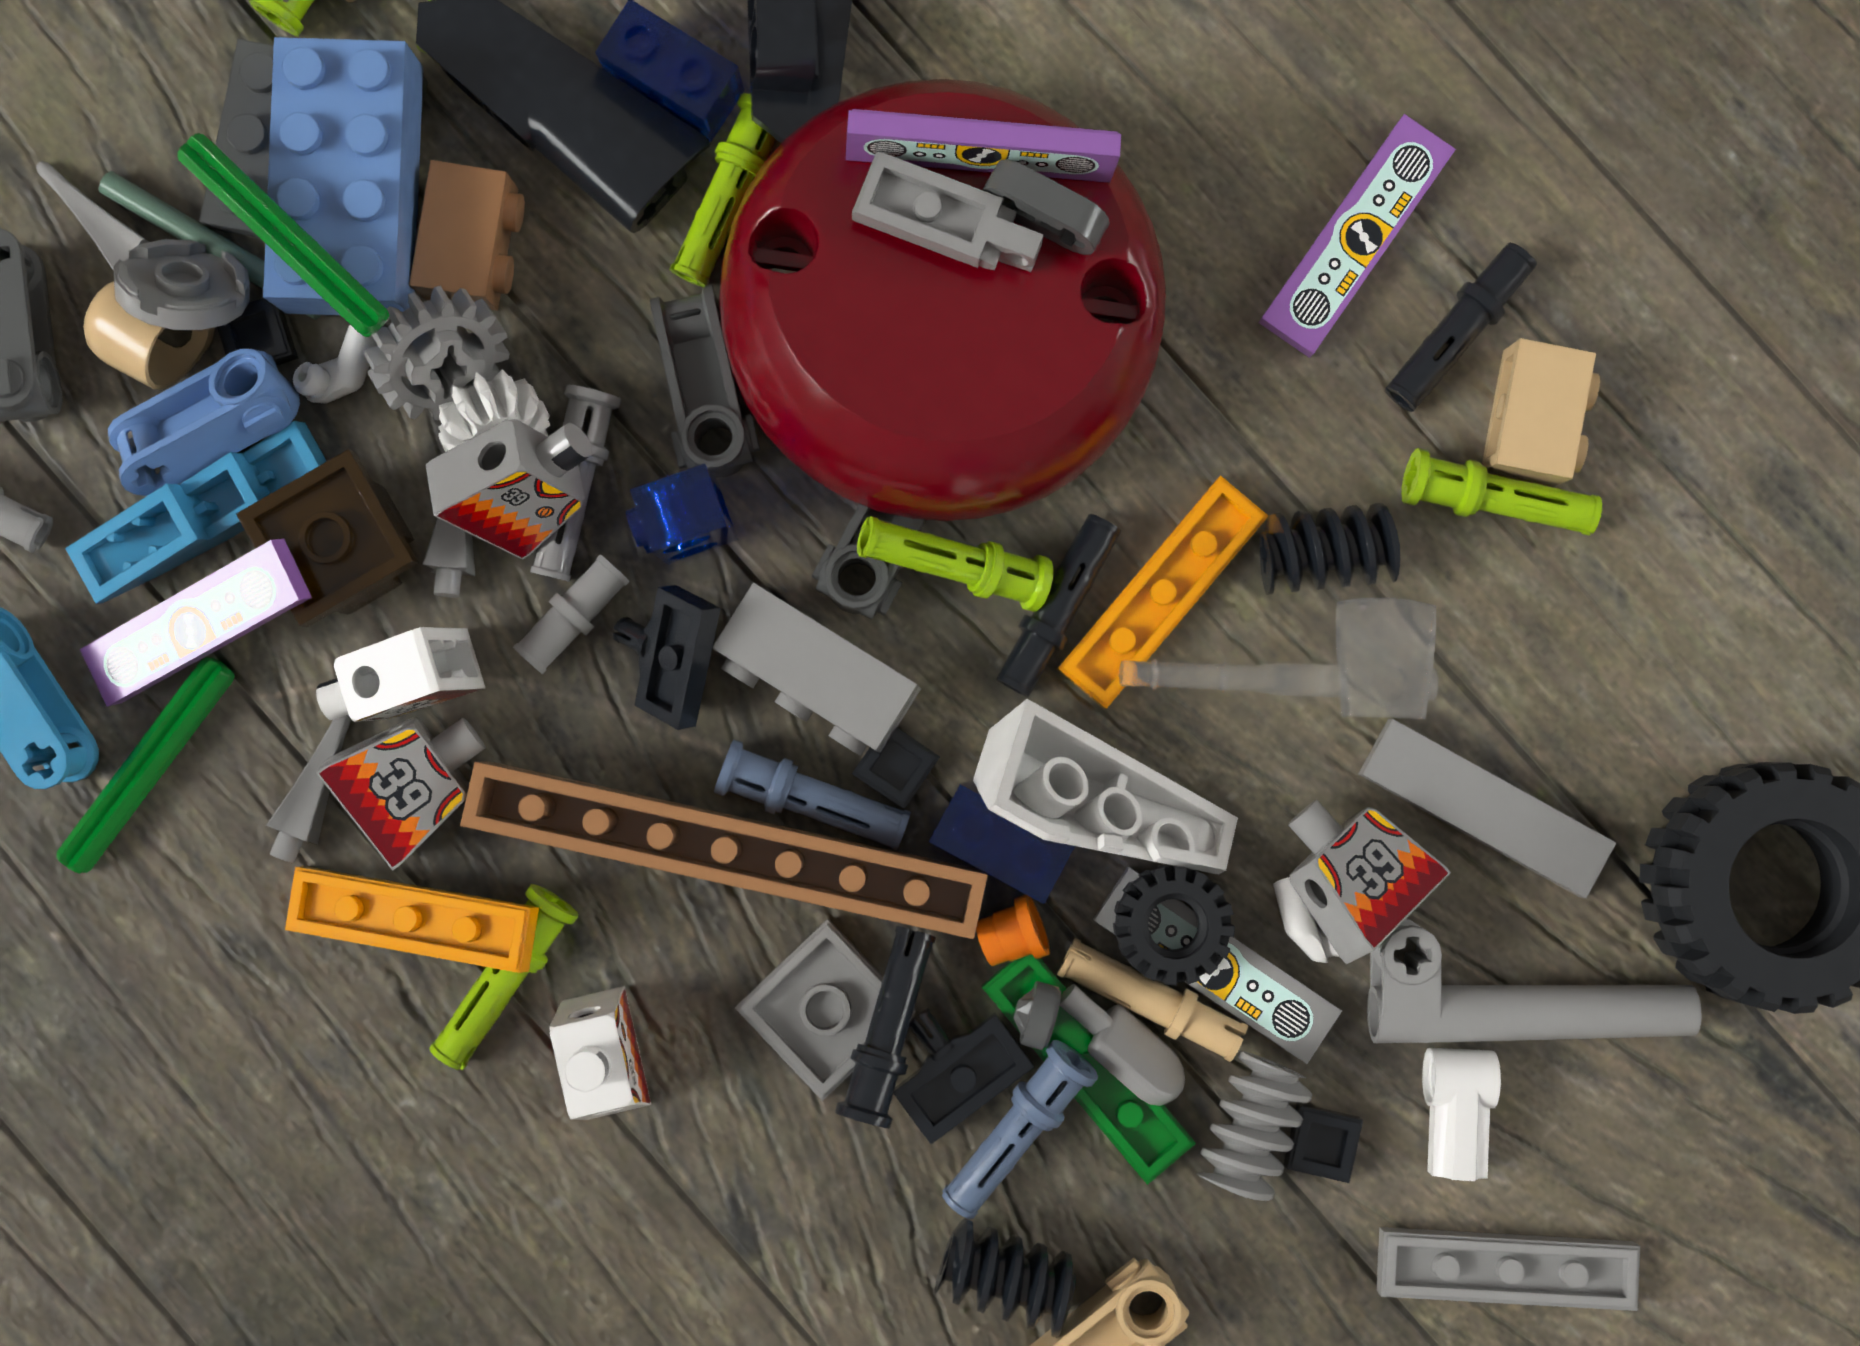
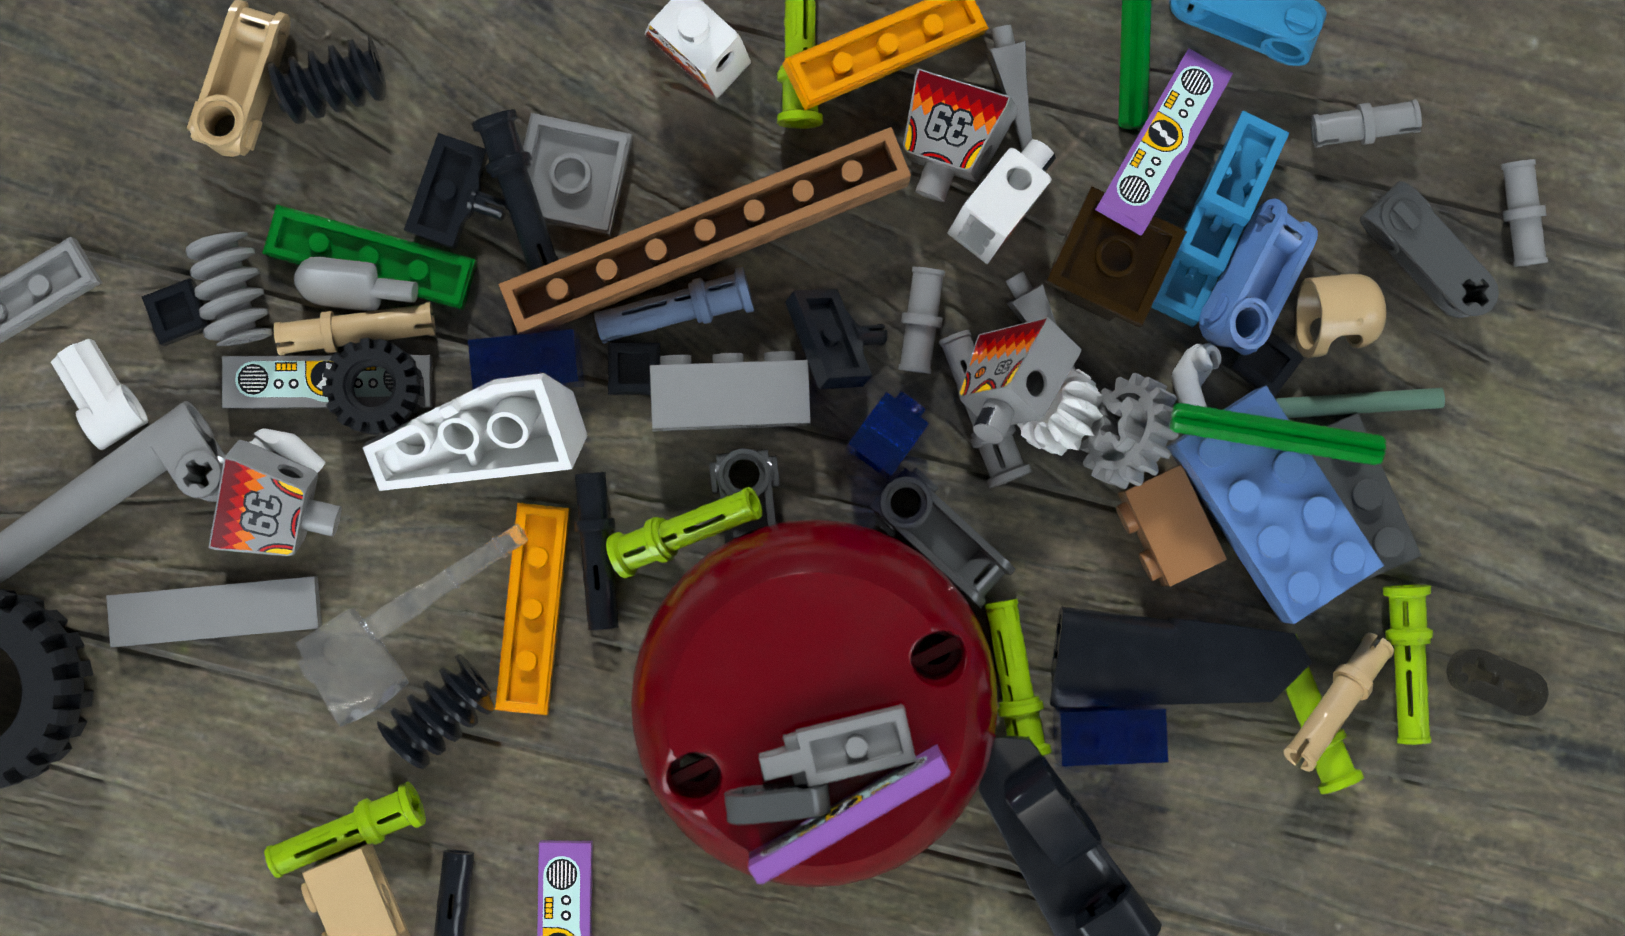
camera: 145 degrees right, 0 degrees up
(106, 231) = (1401, 361): light grey piece -> none
(181, 285) = (1333, 359): light grey tile -> none
(1013, 933) = (477, 308): orange piece -> none
(1035, 1108) = (383, 203): sand blue pin -> none
(1037, 1015) = (423, 264): dark grey tile -> none

